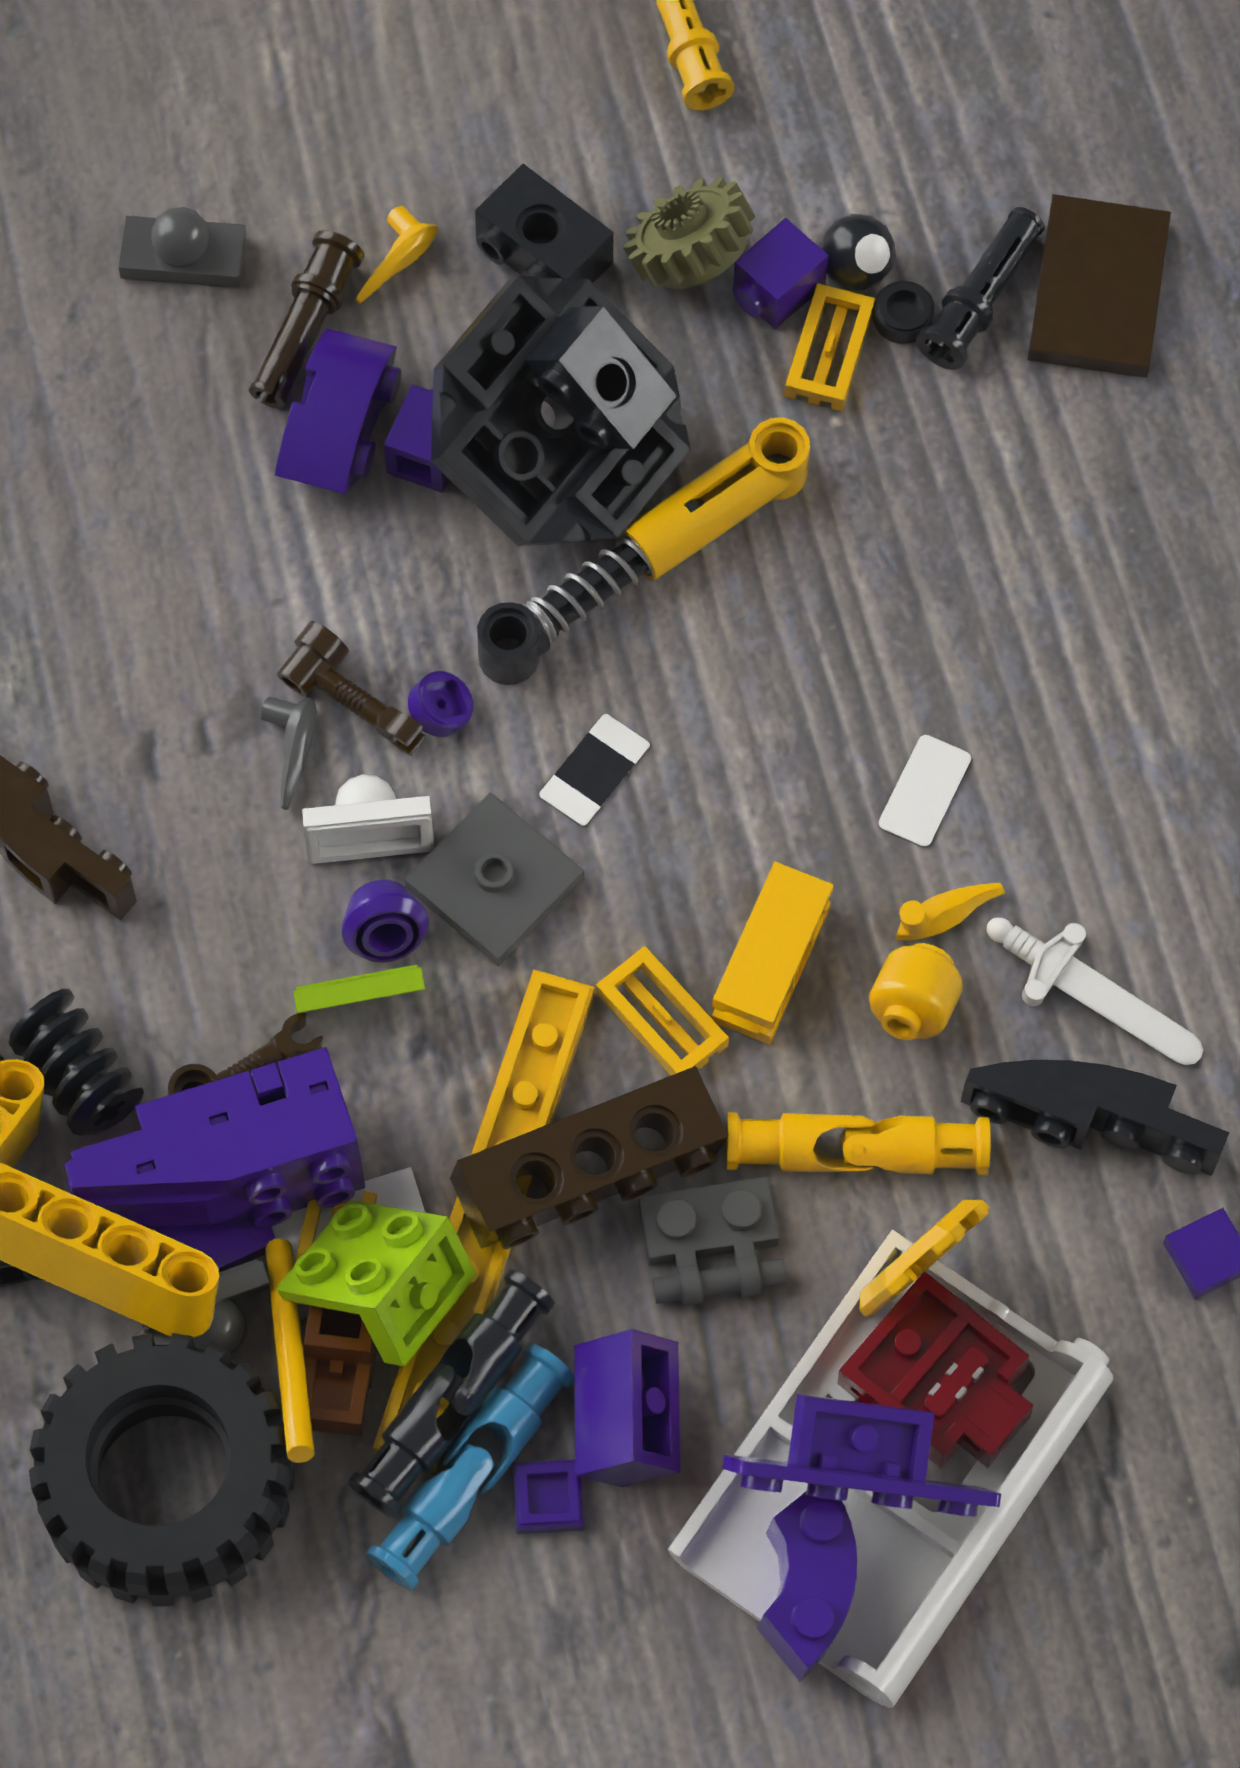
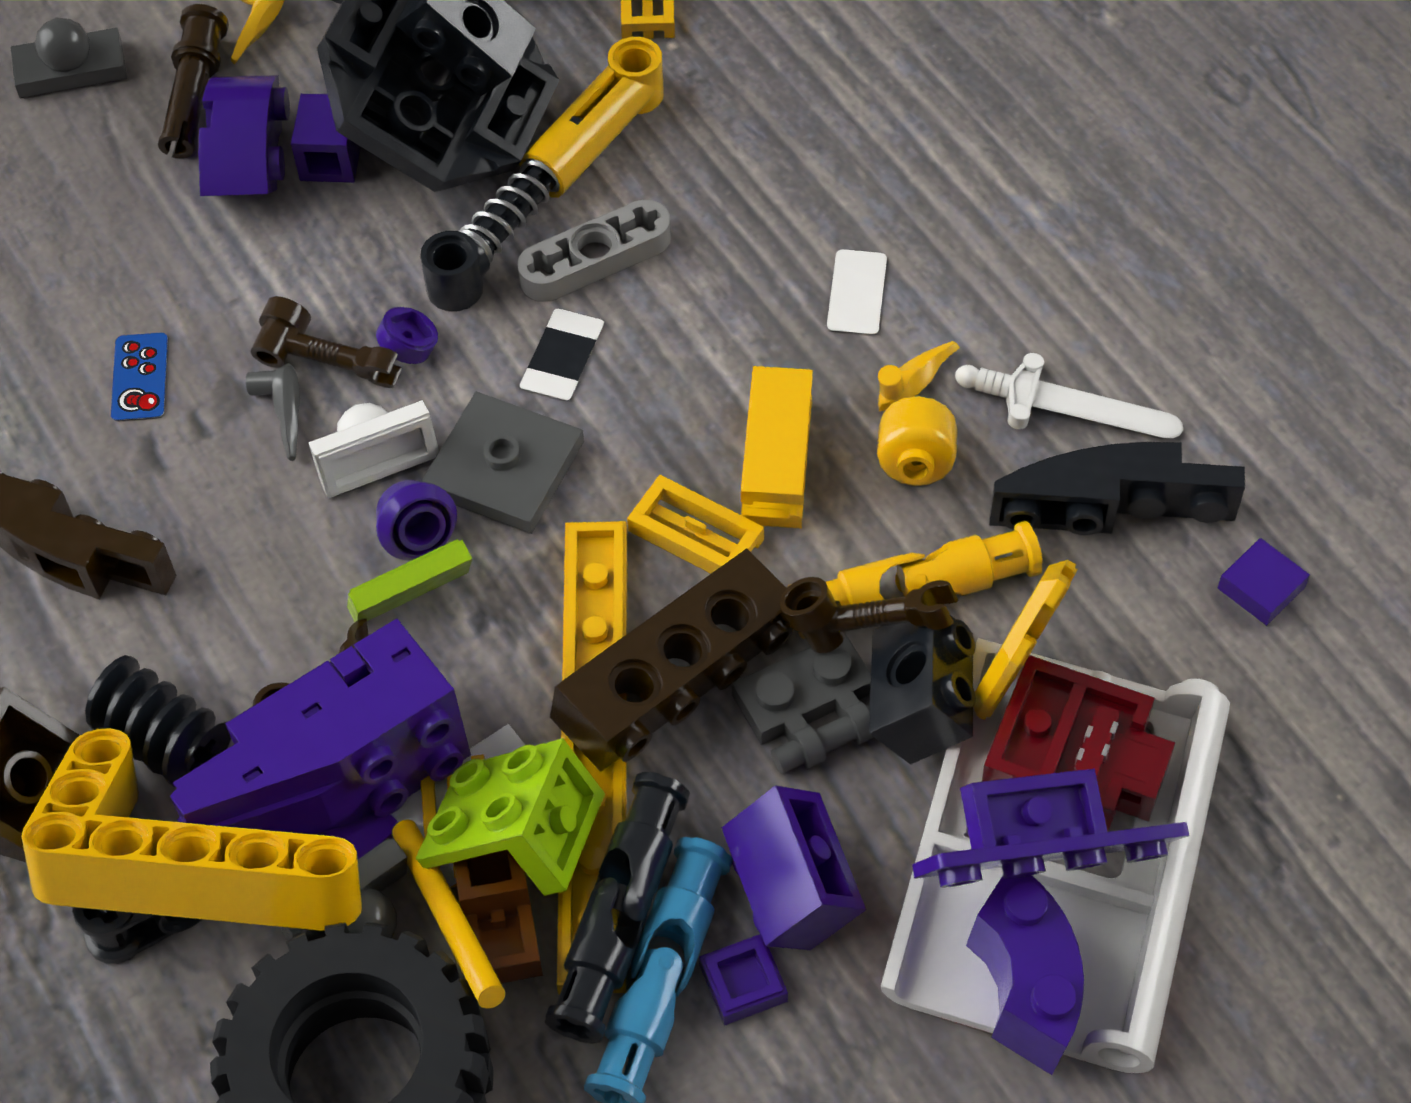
camera: 15 degrees left, 10 degrees down
(158, 661) = (139, 376): none -> blue sticker
(651, 681) = (604, 229): none -> light grey beam
(739, 1161) = (824, 620): none -> dark brown brick
(817, 1261) = (921, 688): none -> black brick

